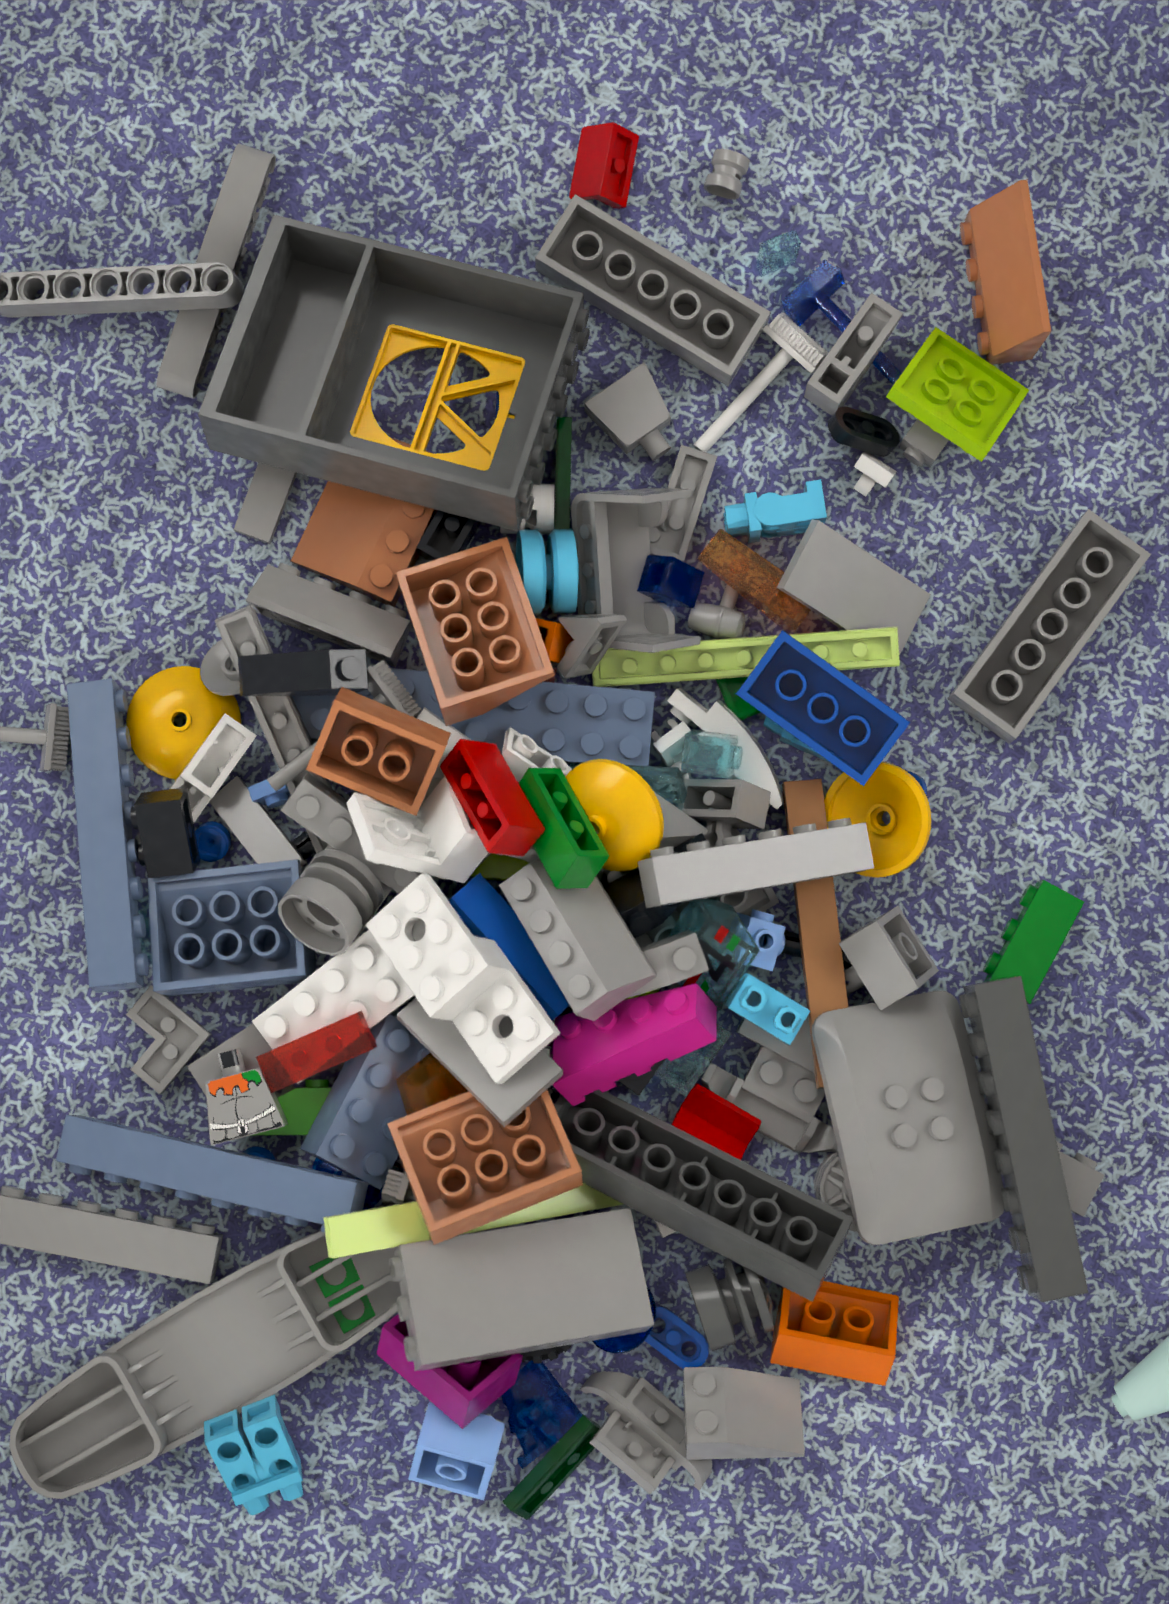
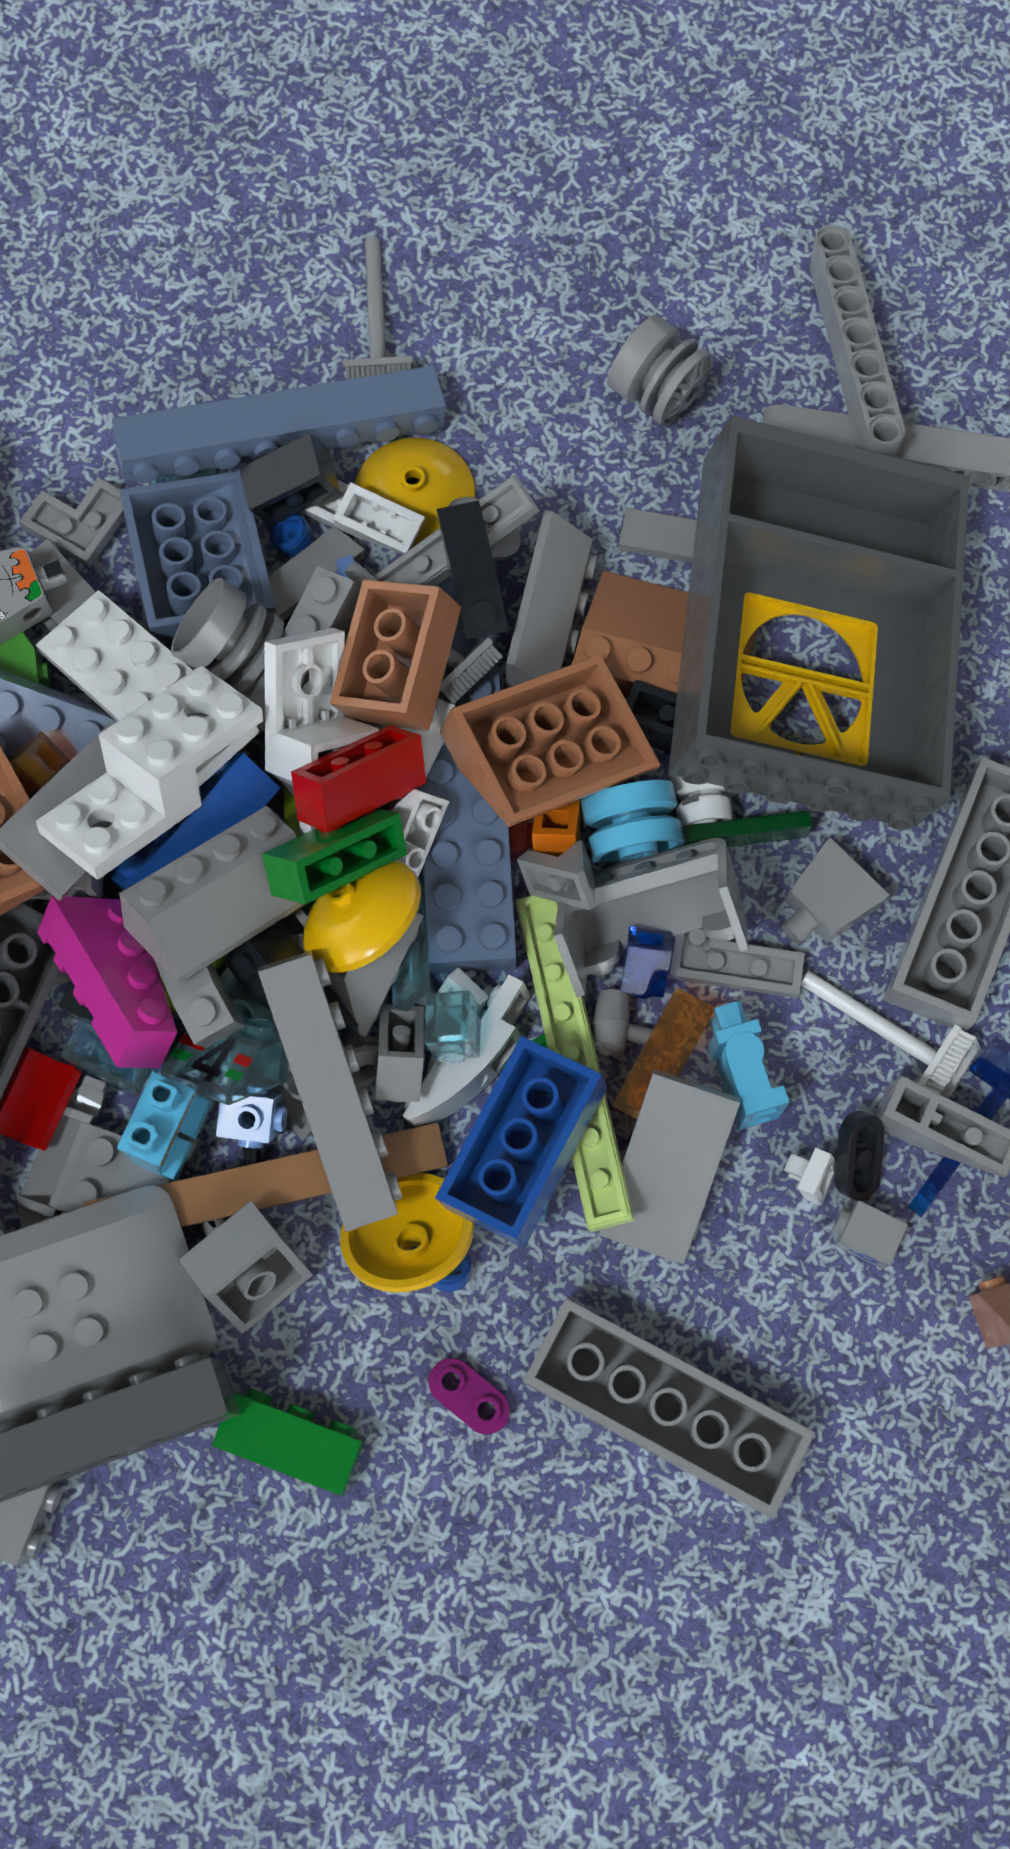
camera: 85 degrees right, 10 degrees down
(108, 473) = (660, 370): none -> light grey wheel
(316, 1051) = (66, 649): clear red tile -> none
(957, 394) = (924, 1256): lime plate -> none
(1014, 789) = (468, 1396): none -> magenta plate

